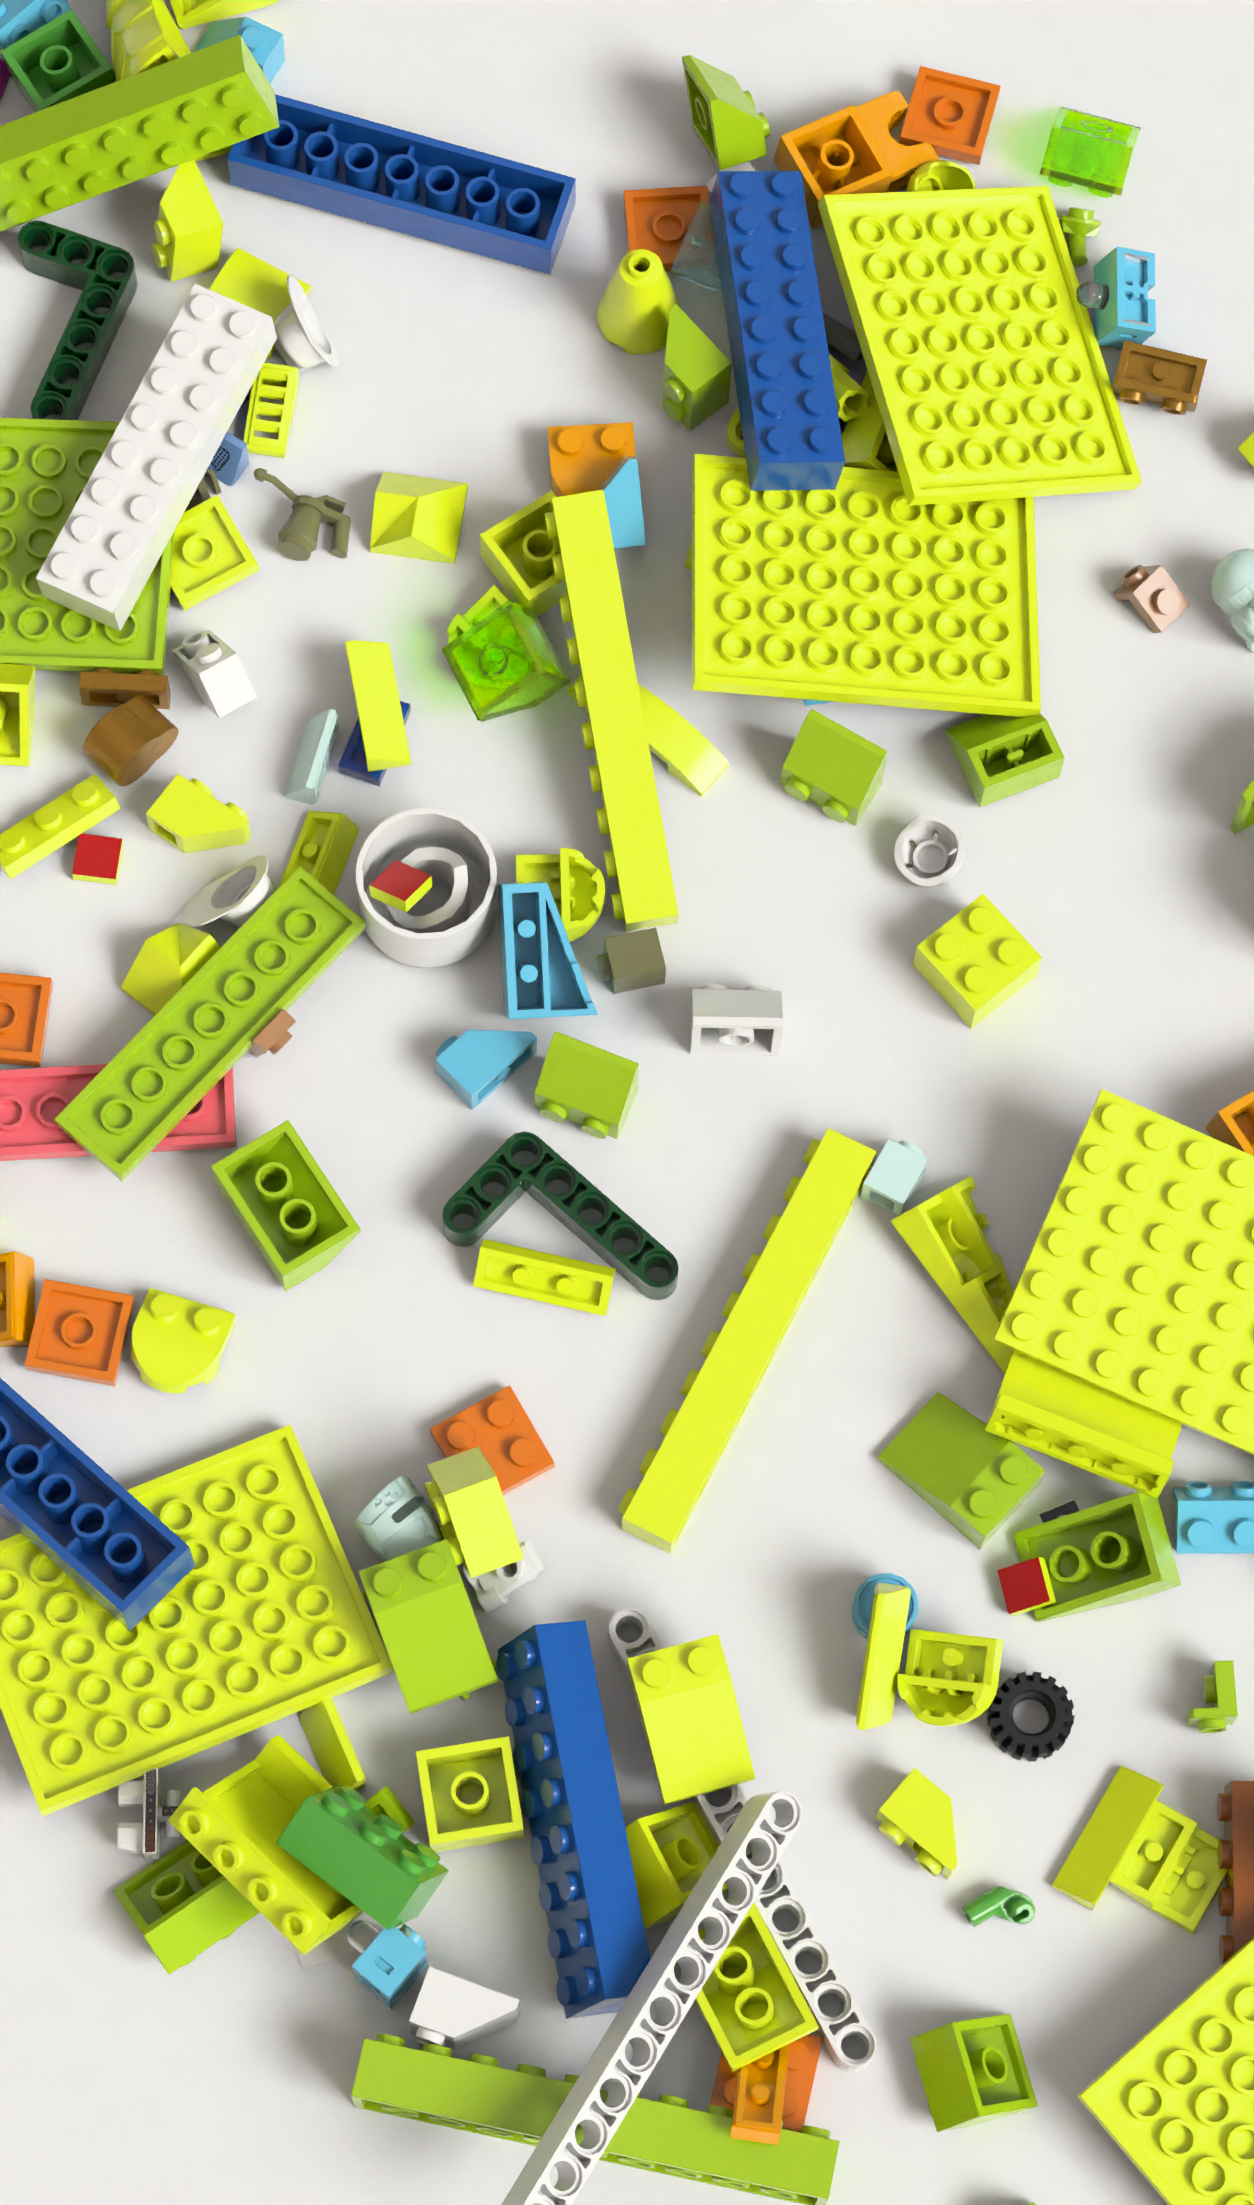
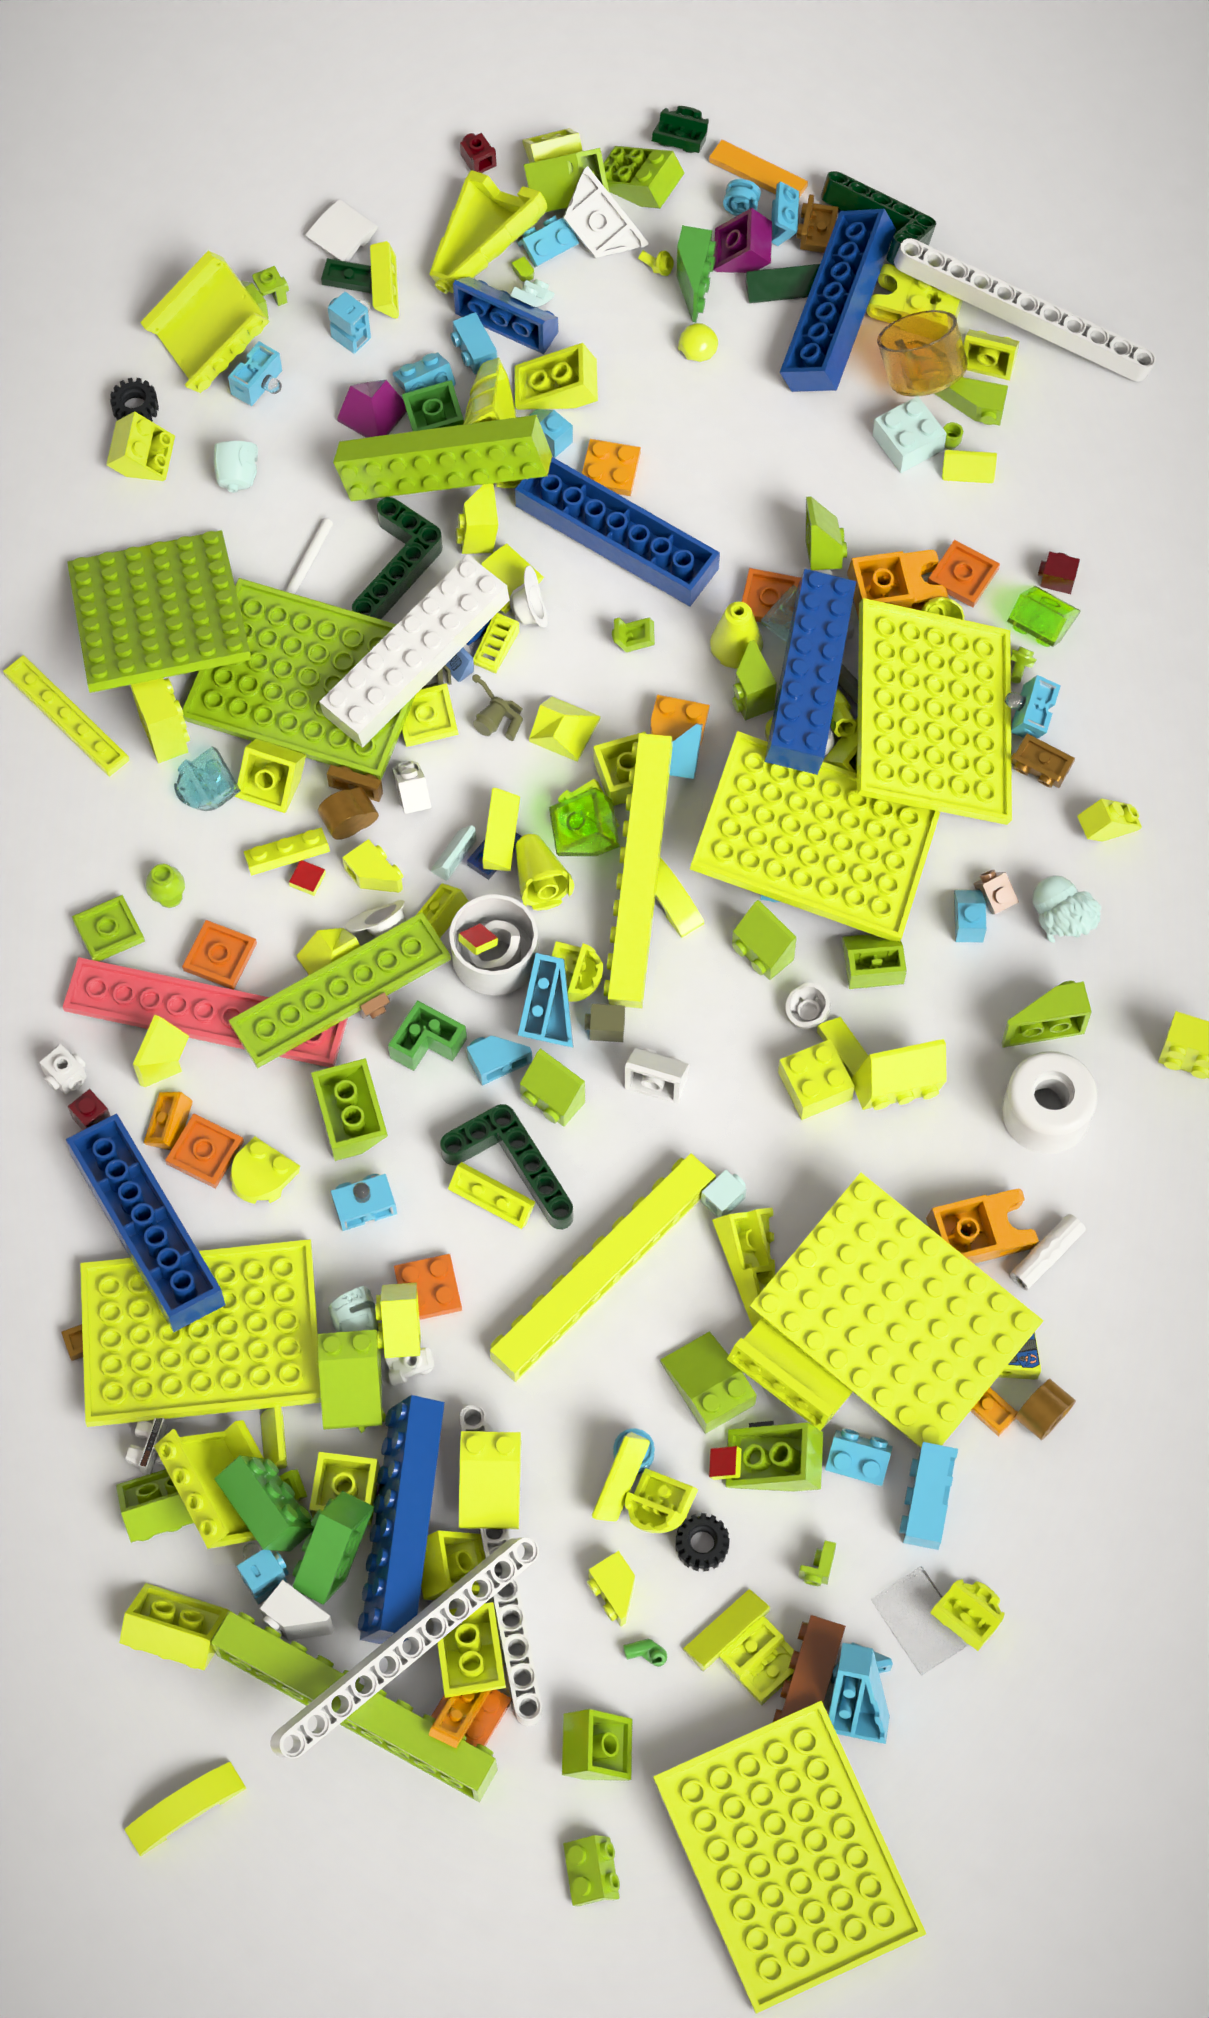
camera: 20 degrees right, 5 degrees down
(276, 2083) = (172, 1626): none -> neon yellow slope
(352, 1341) = (363, 1201): none -> medium azure piece
(359, 81) = (612, 465): none -> light orange plate
(364, 1048) = (425, 1030): none -> bright green brick
(459, 755) = (541, 874): none -> neon yellow cone
(480, 340) = (633, 635): none -> lime bracket
(484, 1892) = (331, 1547): none -> bright green brick
(1030, 917) = (846, 1044): none -> neon yellow slope
(1092, 76) = (1059, 572): none -> dark red brick
(1106, 921) = (901, 1075): none -> neon yellow slope
(1125, 645) = (969, 916): none -> medium azure slope

